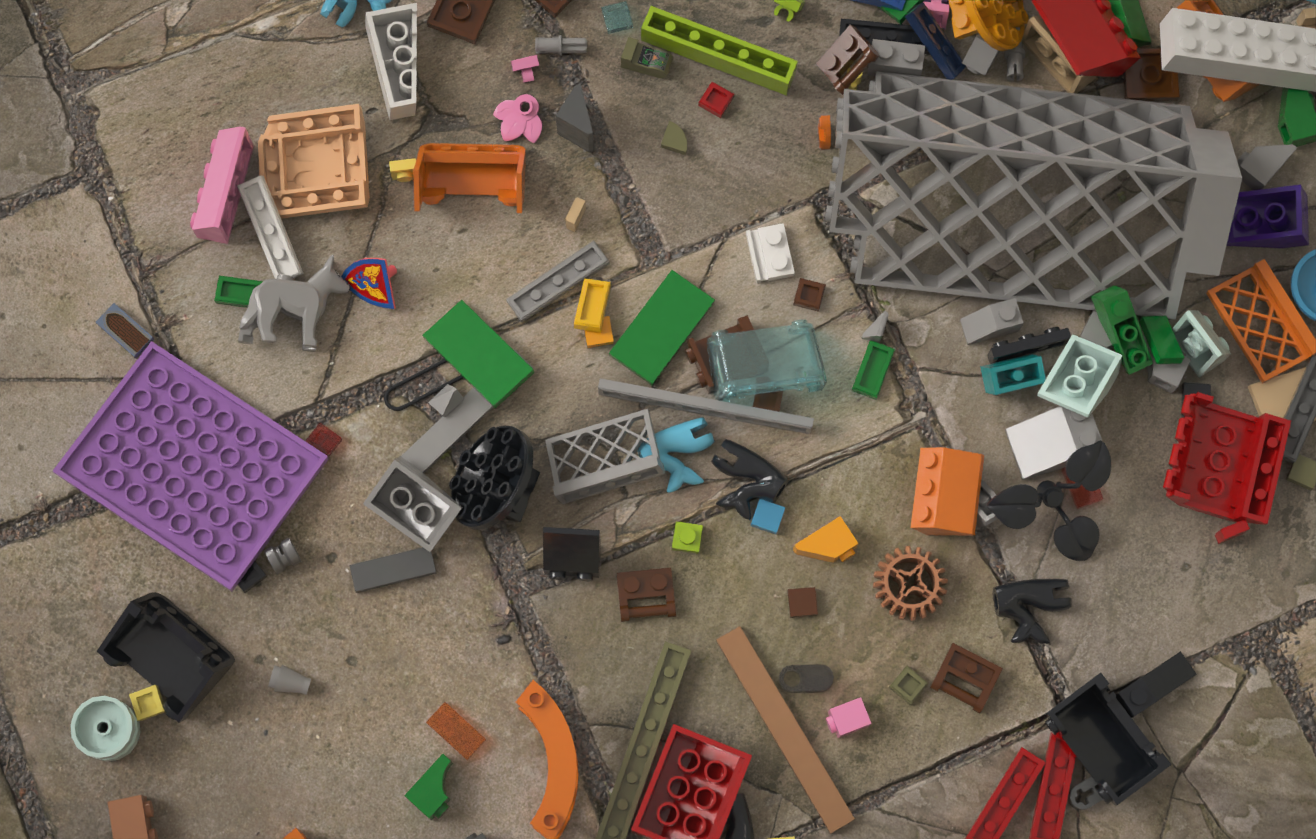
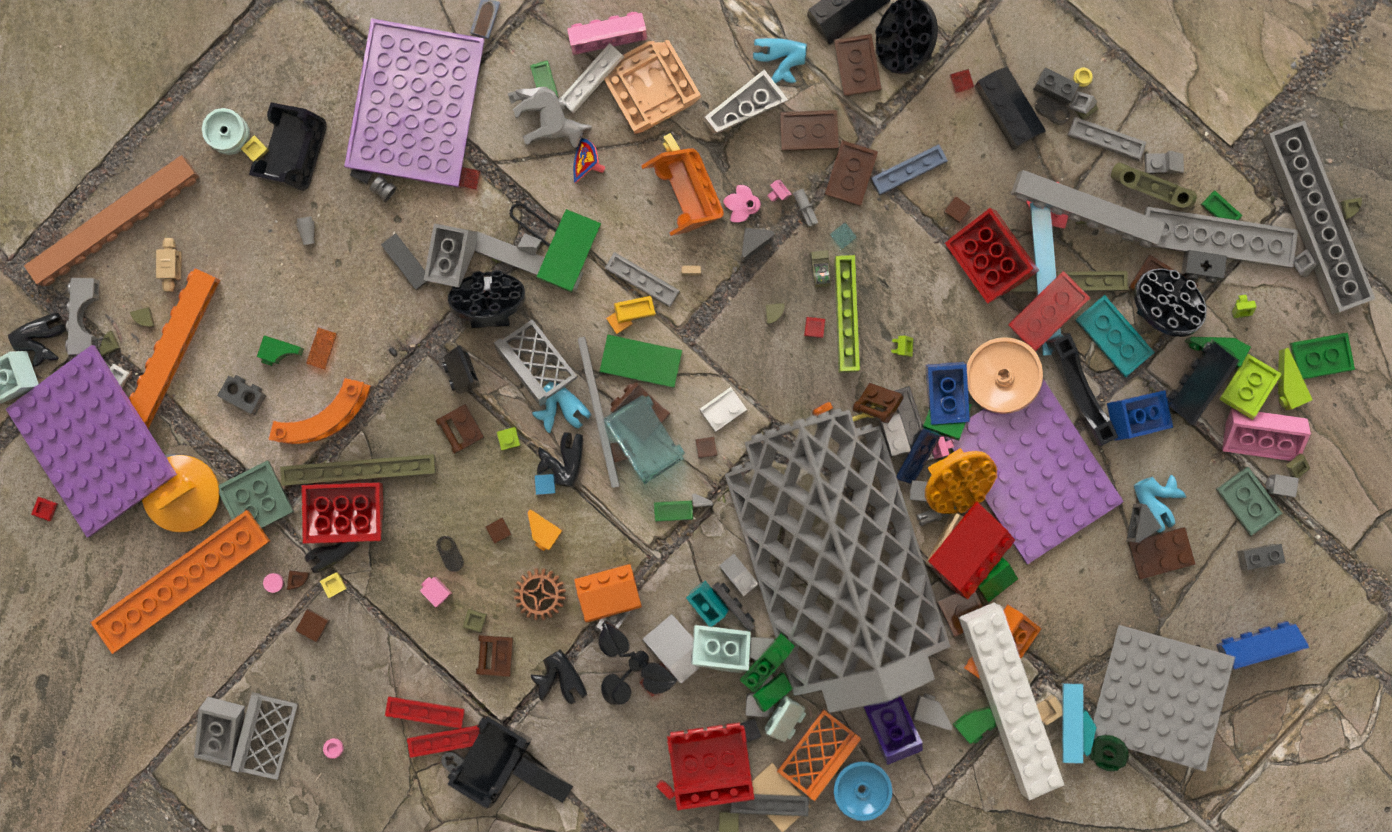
camera: 65 degrees right, 10 degrees up
(785, 730) = (412, 554): medium nougat tile -> none

